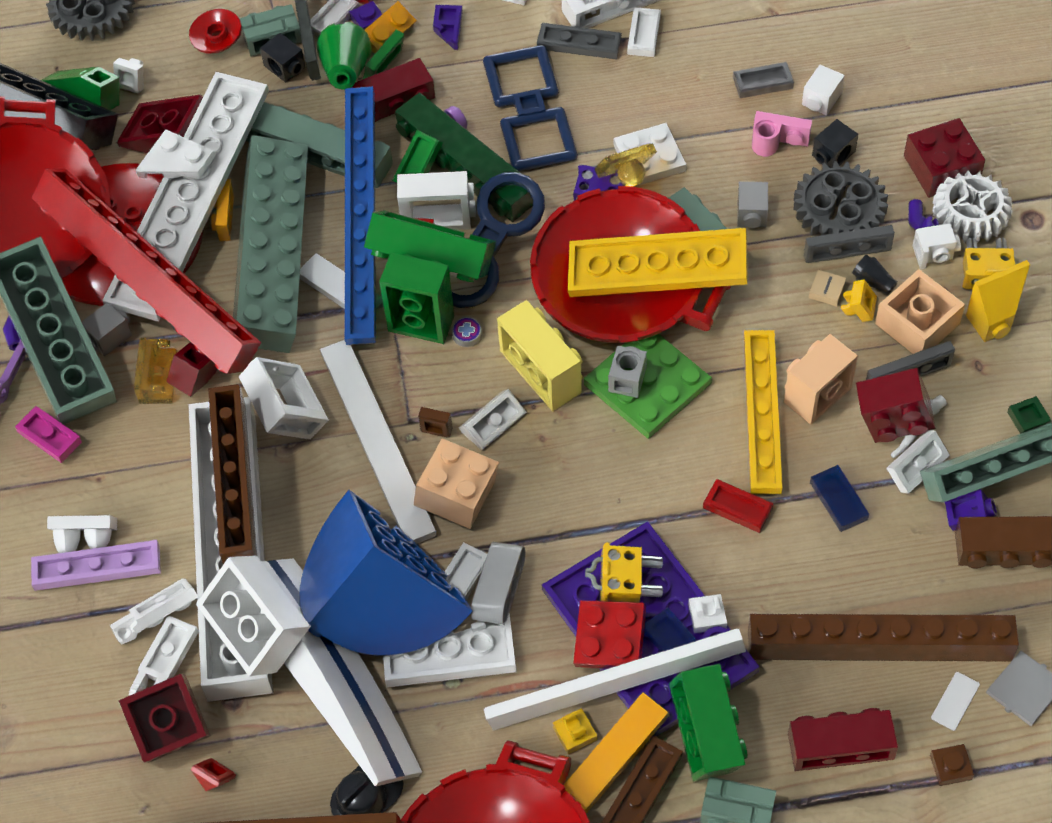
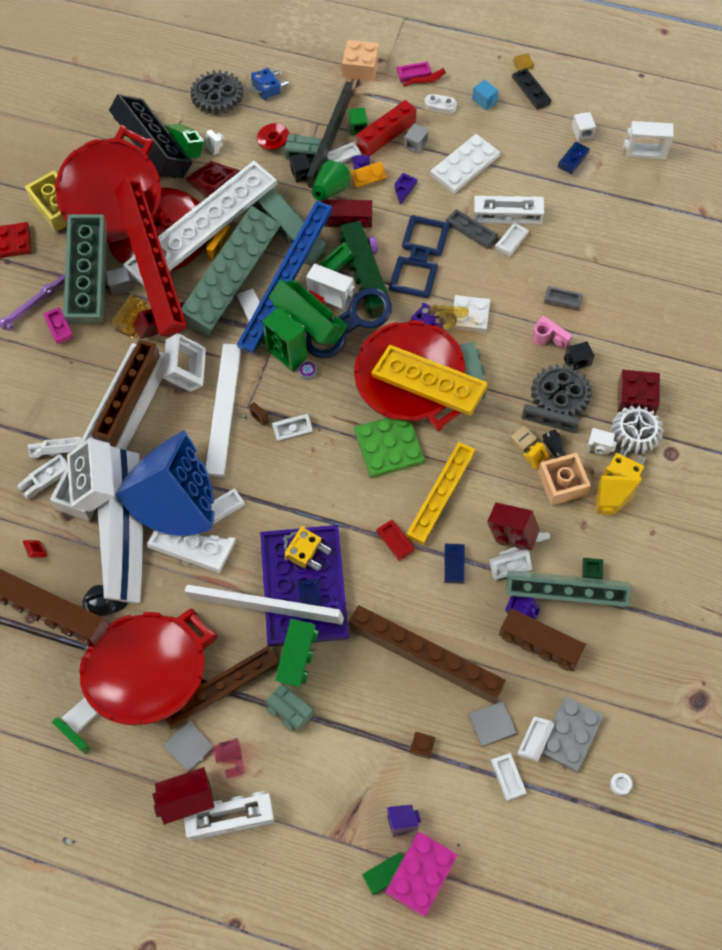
camera: 25 degrees right, 5 degrees up
(68, 531) = (38, 382): white tile -> none
(95, 565) = (41, 408): lavender plate -> none
(164, 718) = (24, 507): dark red brick -> none
(176, 157) = (203, 200): white wing -> none
(385, 55) = (356, 190): green tile -> none
(455, 483) = (247, 453): light nougat brick -> none
(498, 583) = (237, 519): light grey beam -> none
(540, 355) = (335, 402): light yellow brick -> none
(574, 731) = (231, 621): yellow tile -> none
(609, 633) = (277, 577): red plate -> none
(615, 751) = (241, 644): light orange tile -> none
(627, 381) = (376, 441): light grey brick -> none
(707, 612) = (337, 592): white tile -> none
(752, 204) = (509, 369): light grey brick -> none
(819, 378) = (481, 489): light nougat brick -> none
(823, 90) = (592, 320): white brick -> none
(842, 739) = (369, 699): dark red brick -> none
(916, 218) = (601, 421): dark purple arm -> none
(926, 361) = (543, 508): dark grey tile -> none
(955, 701) = (448, 710): white sticker -> none

